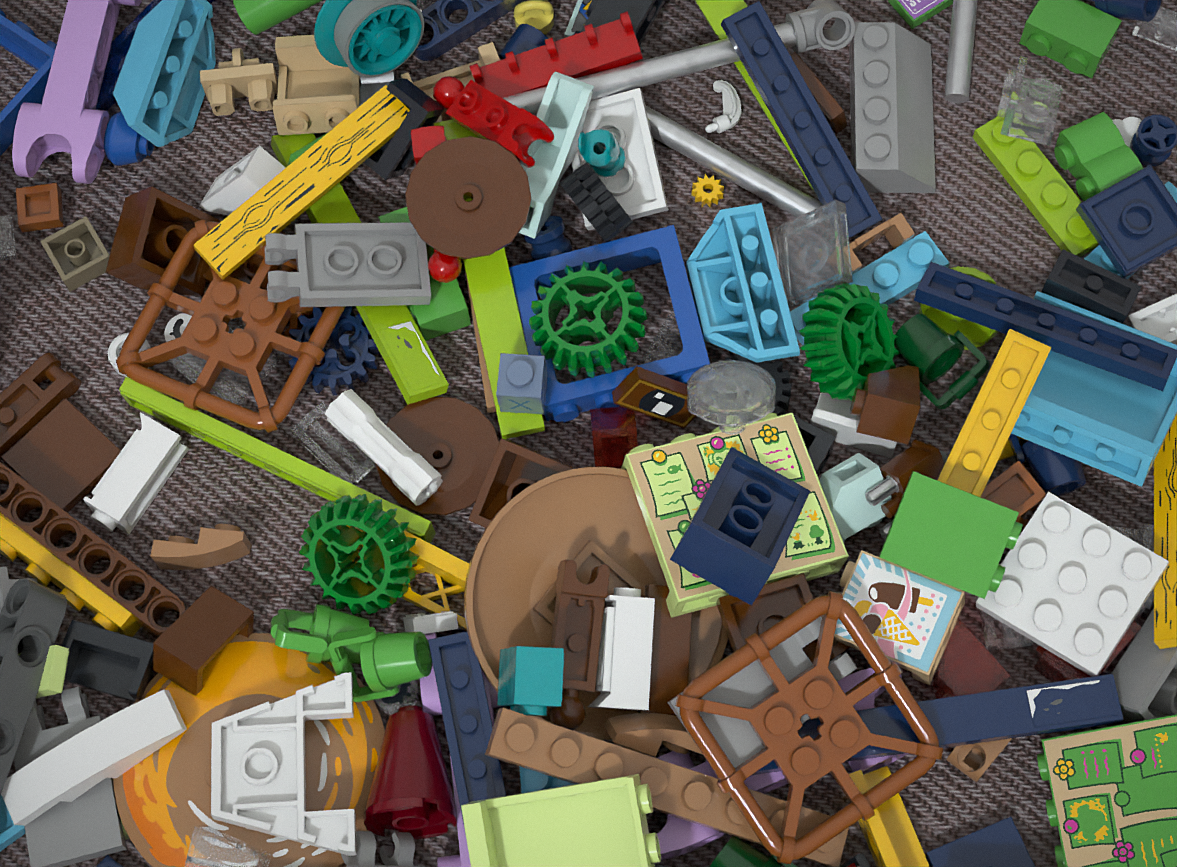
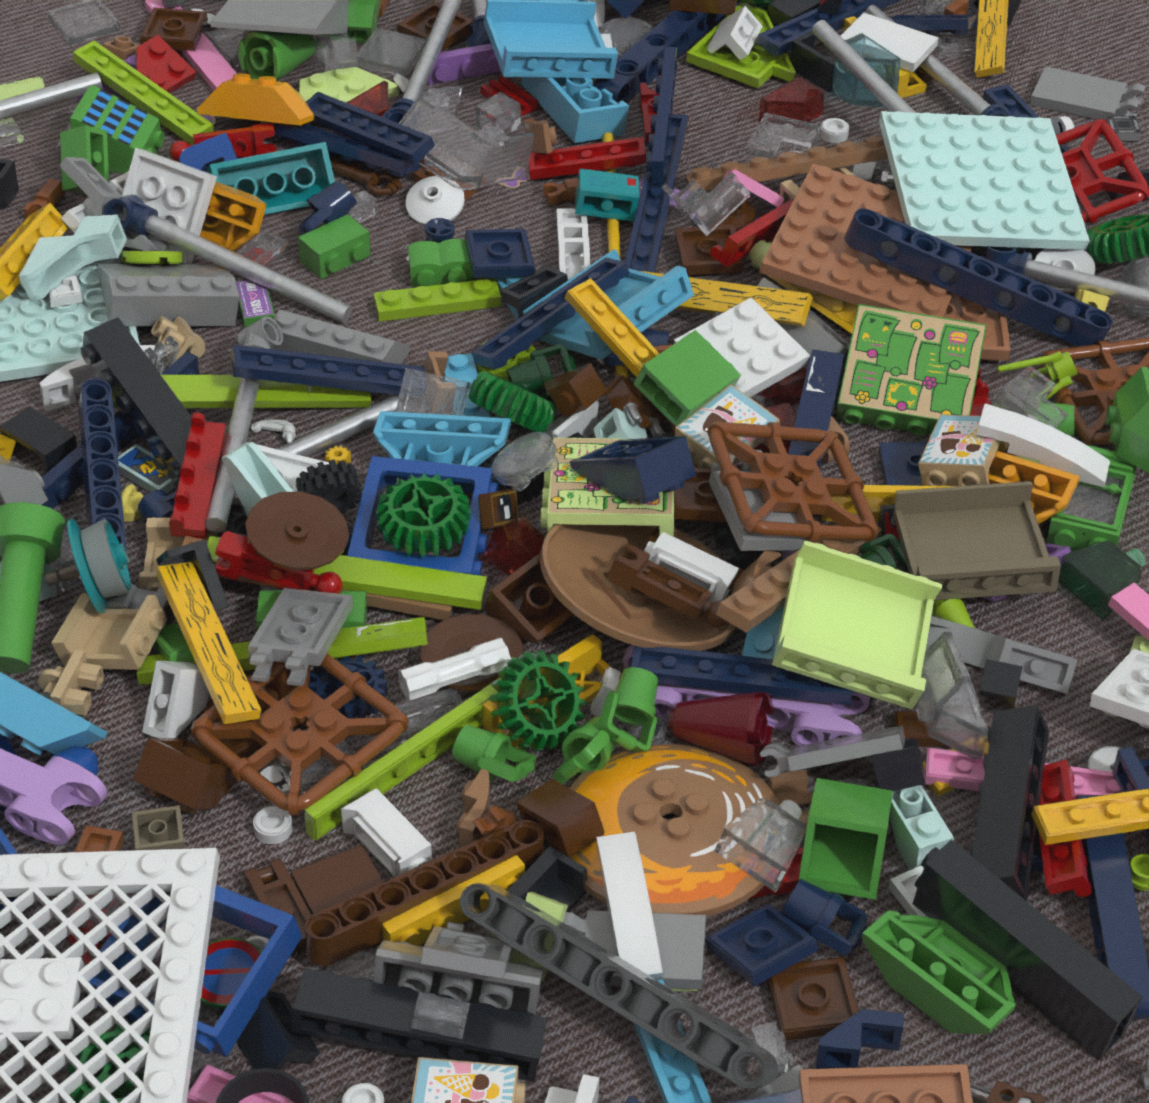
camera: 75 degrees left, 25 degrees down
(178, 575) = (495, 820): none -> dark orange bar
(262, 768) = (695, 788): white wing -> none
(279, 529) = (489, 751): none -> bright green piece
(491, 117) = (229, 509): red plate -> none
(522, 383) = (454, 563): sand blue brick -> none
(530, 679) = (695, 604): teal brick -> none
(603, 162) = (286, 464): teal piece -> none
(1028, 106) = (378, 278): clear bracket -> none

